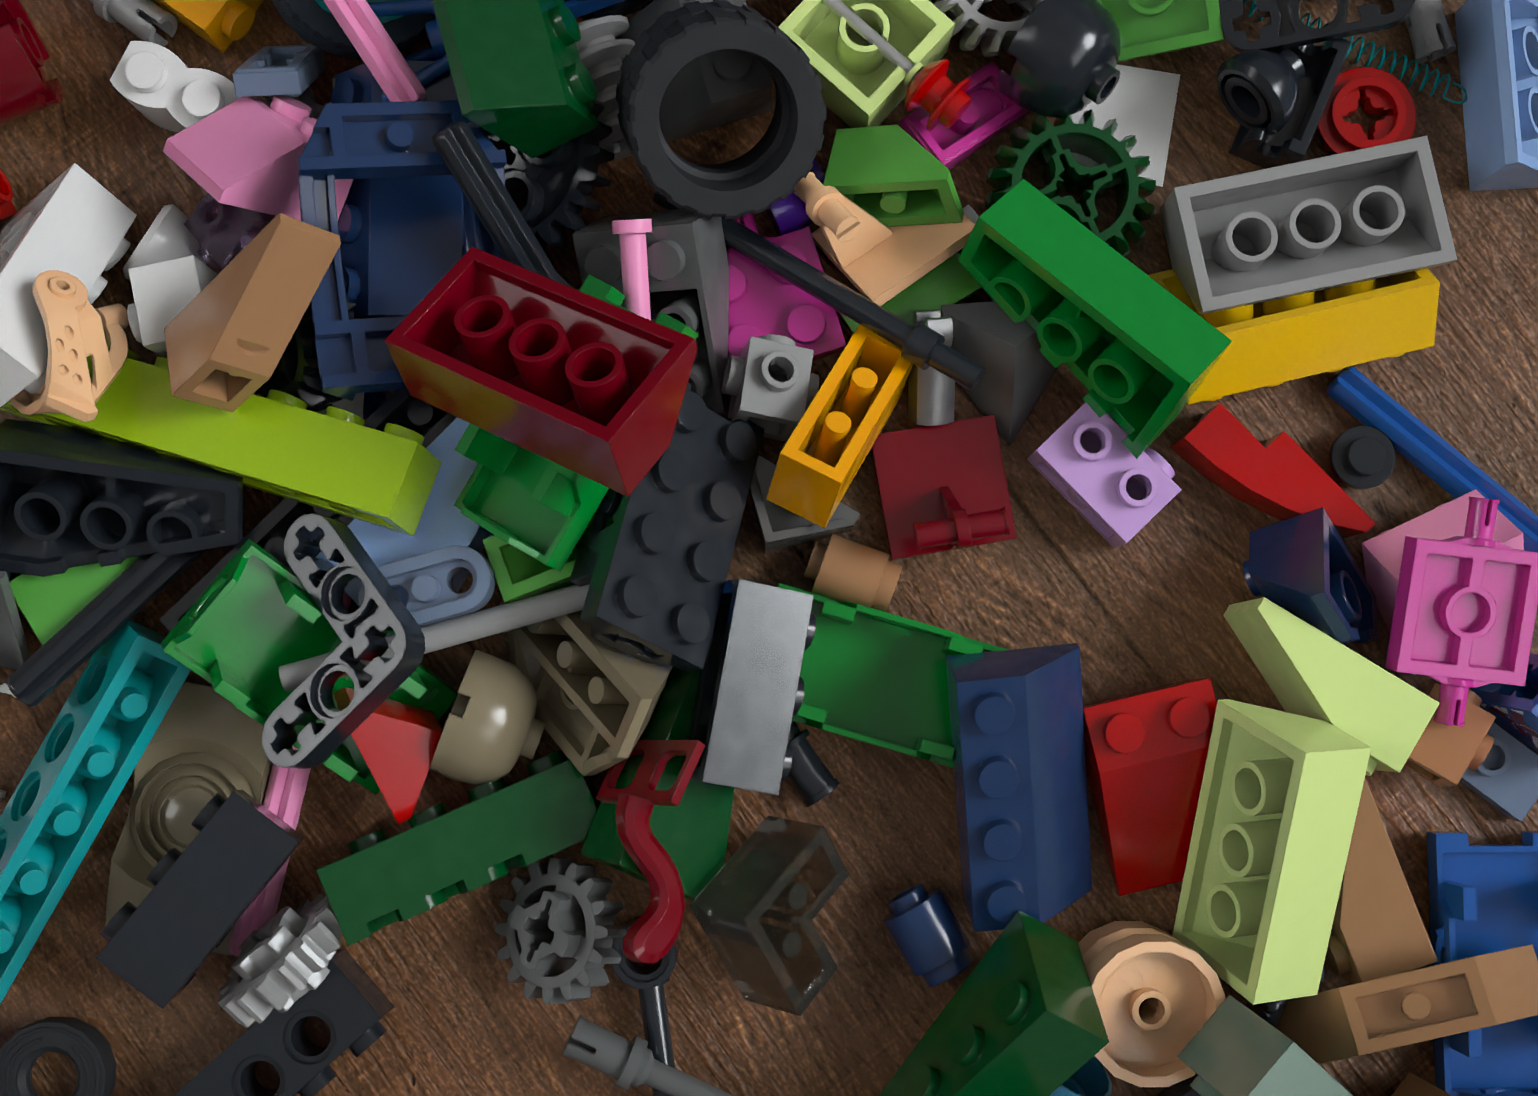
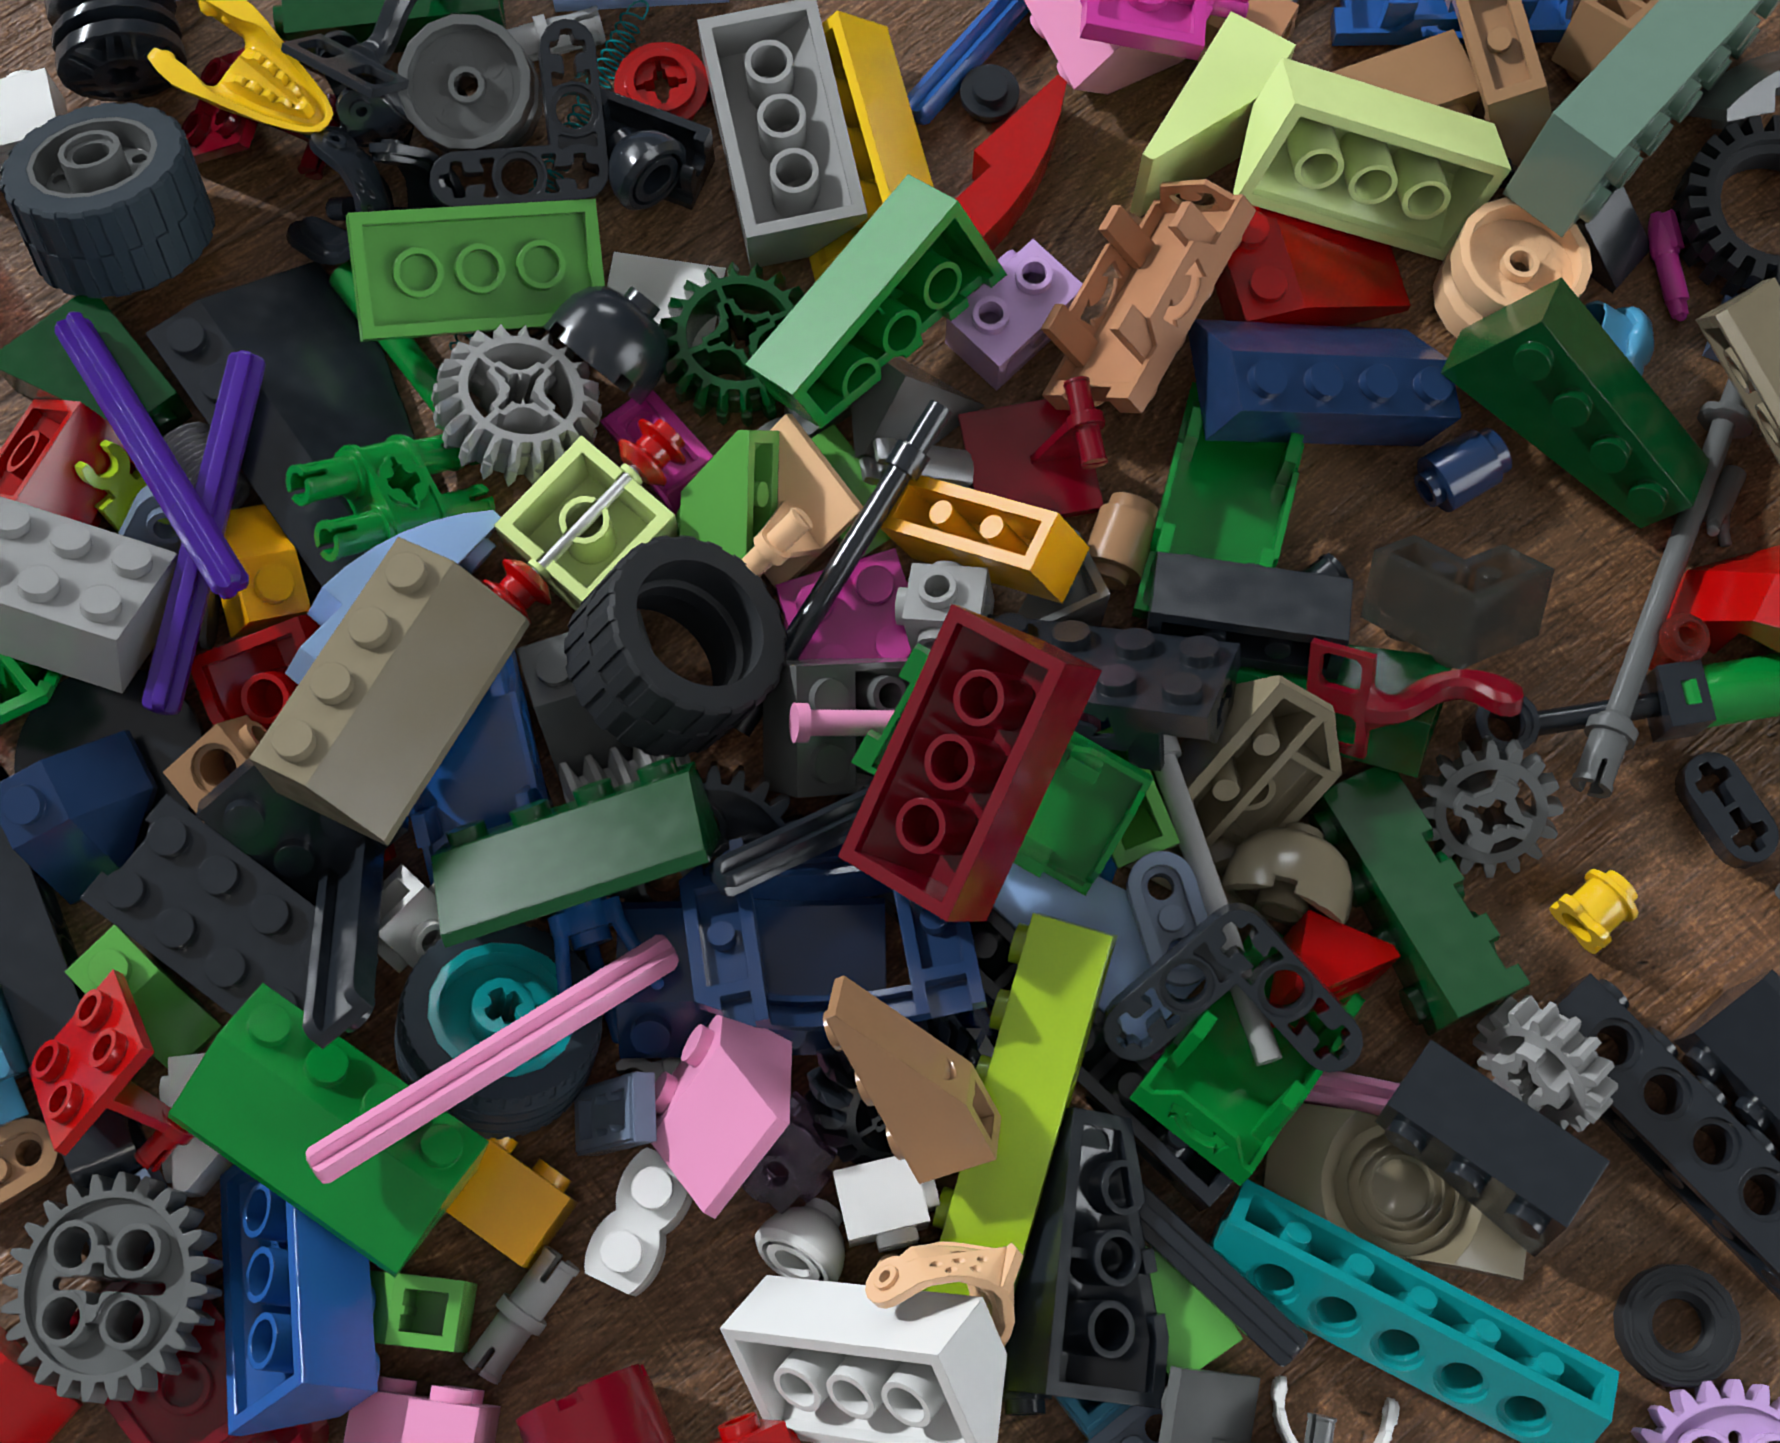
camera: 90 degrees left, 10 degrees down
(459, 1036) = (1597, 908): none -> yellow brick
(1130, 626) = (1163, 281): none -> nougat piece
(1312, 576) = (1110, 130): dark blue slope -> none

